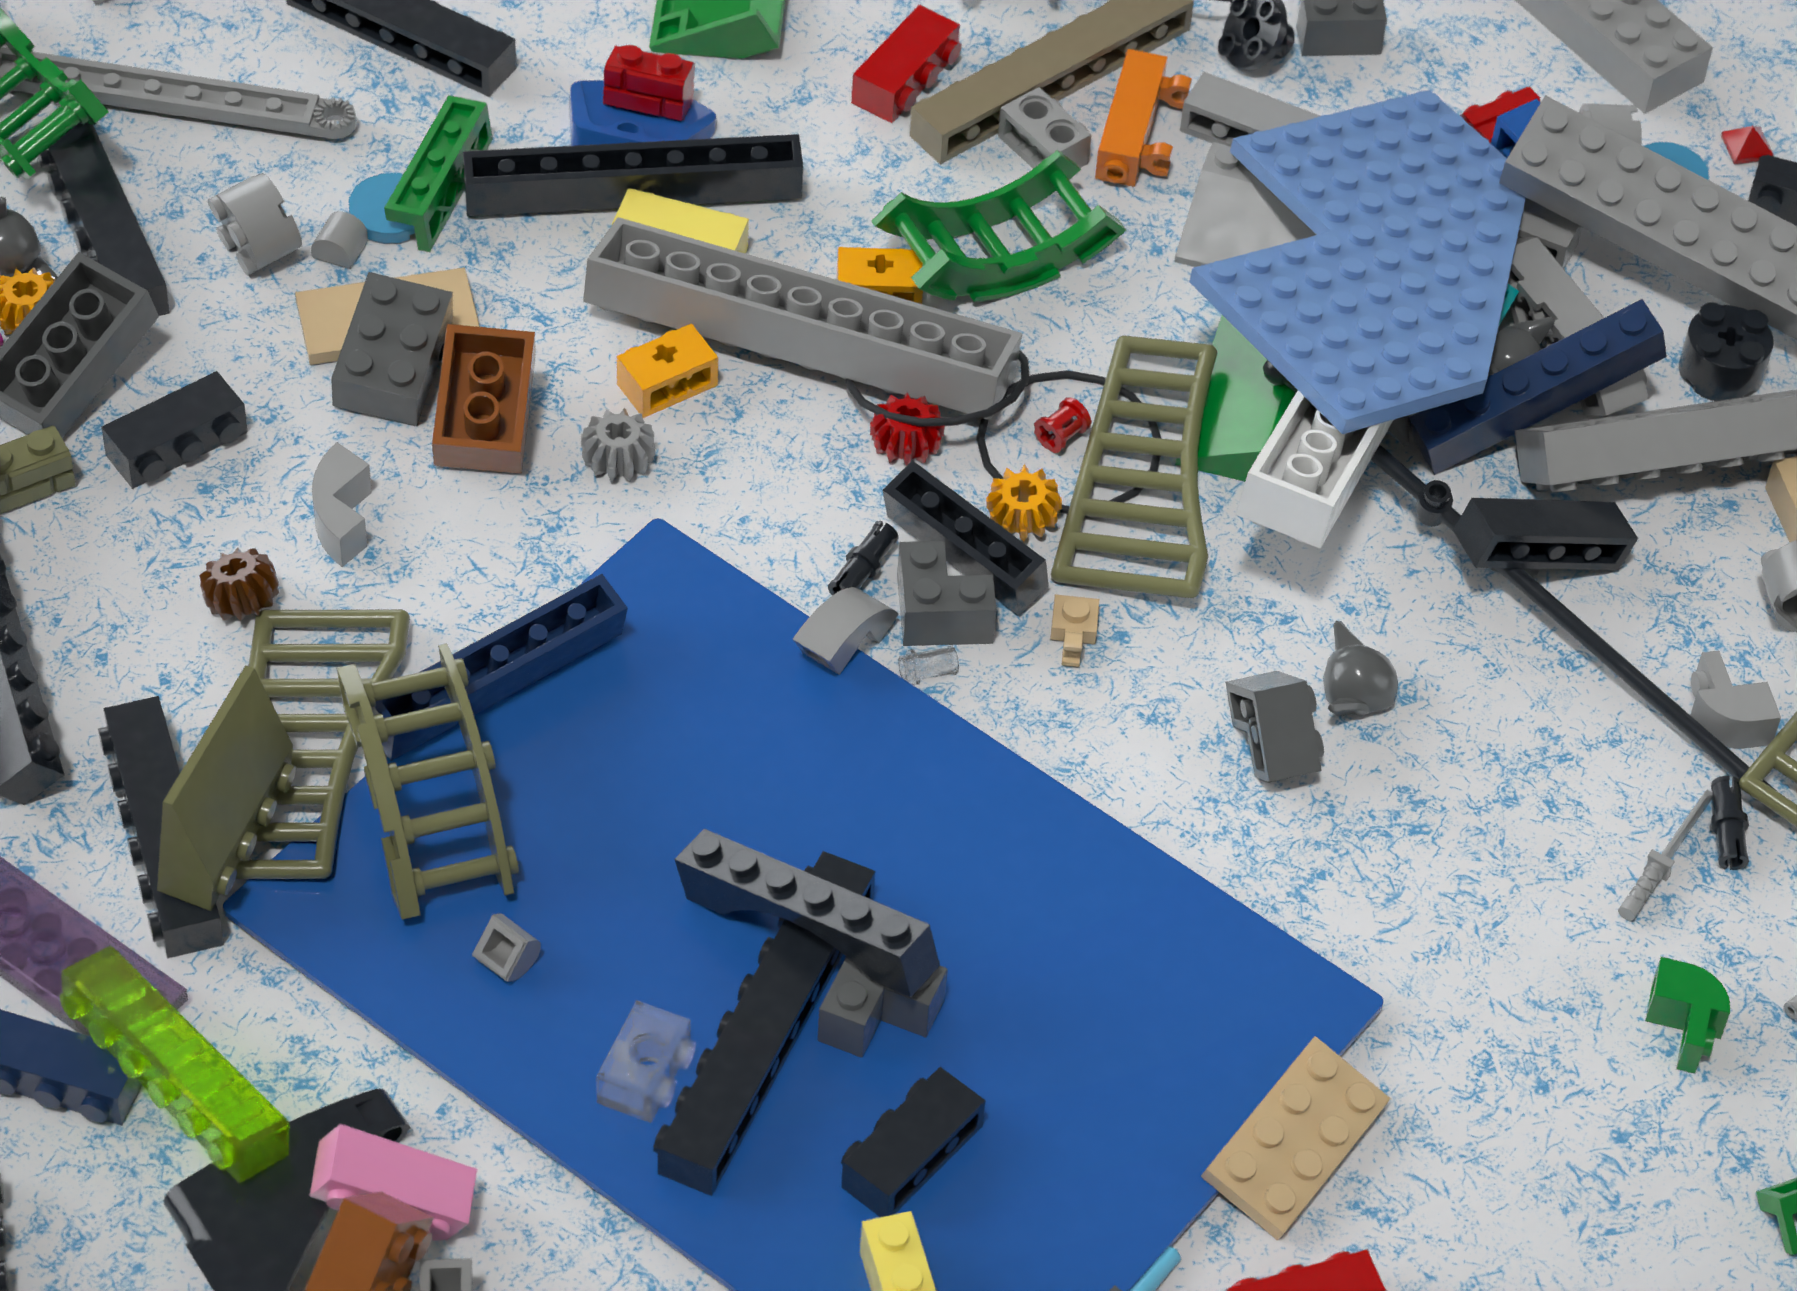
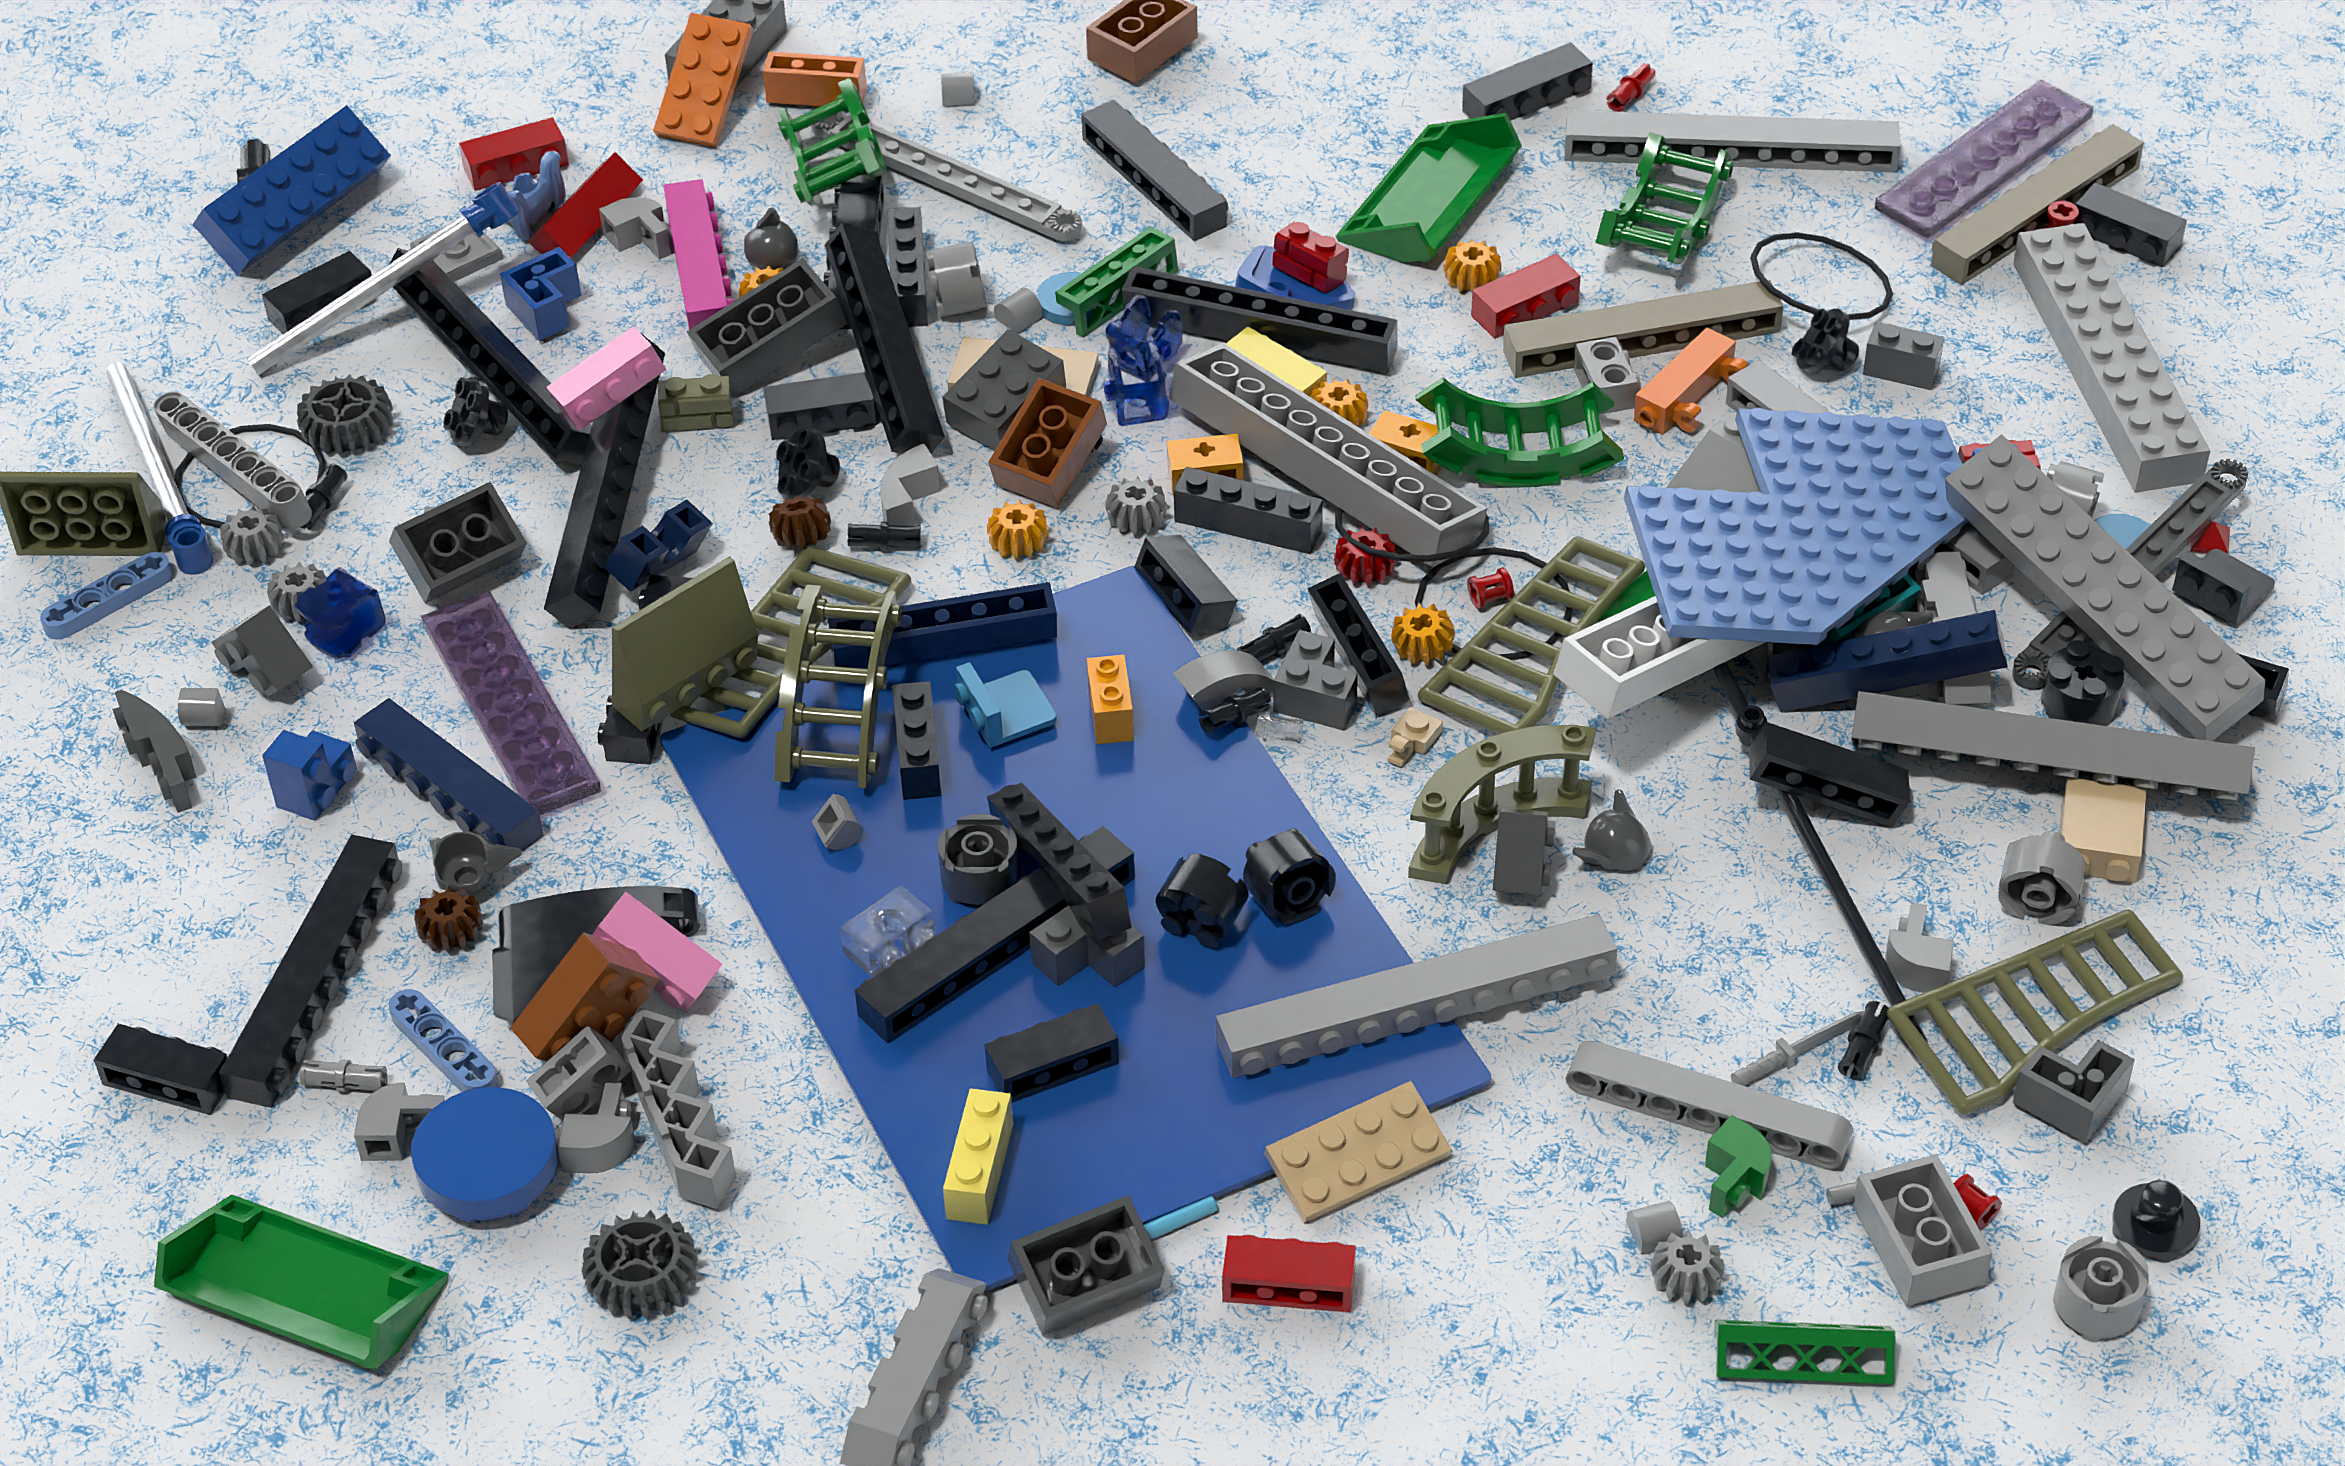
camera: 30 degrees right, 5 degrees down
(85, 1146) = (468, 860): none -> dark grey piece
(94, 668) = (653, 552): none -> dark blue arch
(101, 1226) = (448, 919): none -> reddish brown gear
(174, 1064) = (547, 821): clear neon green brick -> none
(181, 223) = (908, 263): none -> brick
(203, 509) = (805, 464): none -> black plate
(219, 326) = (883, 339): none -> black brick
(344, 569) = (884, 535): none -> black pin
(498, 515) = (1017, 529): none -> light orange gear
(526, 254) = (1132, 329): none -> clear blue piece
(544, 815) = (916, 740): none -> black brick
(559, 295) = (1151, 392): none -> clear blue piece
(614, 737) = (1003, 706): none -> dark azure bracket
(702, 939) = (977, 859): none -> dark grey brick
(731, 523) = (1185, 583): none -> black brick
(734, 692) = (1110, 699): none -> light orange brick
(749, 412) = (1248, 510): none -> black brick
(779, 245) = (1343, 399): none -> light orange gear
(827, 43) = (1471, 265): none -> light orange gear
(875, 660) = (1234, 710): none -> black pin
(979, 902) = (1201, 899): none -> black brick
(1057, 841) = (1288, 876): none -> black brick
(1219, 650) = (1455, 824): none -> olive fence
(1260, 938) = (1415, 995): none -> light grey brick
(1615, 950) = (1707, 1102): none -> light grey beam
(1641, 1109) = (1653, 1225): none -> light grey brick
(1702, 1144) = (1687, 1267): none -> light grey gear
(1717, 162) = (2153, 549): none -> dark grey plate

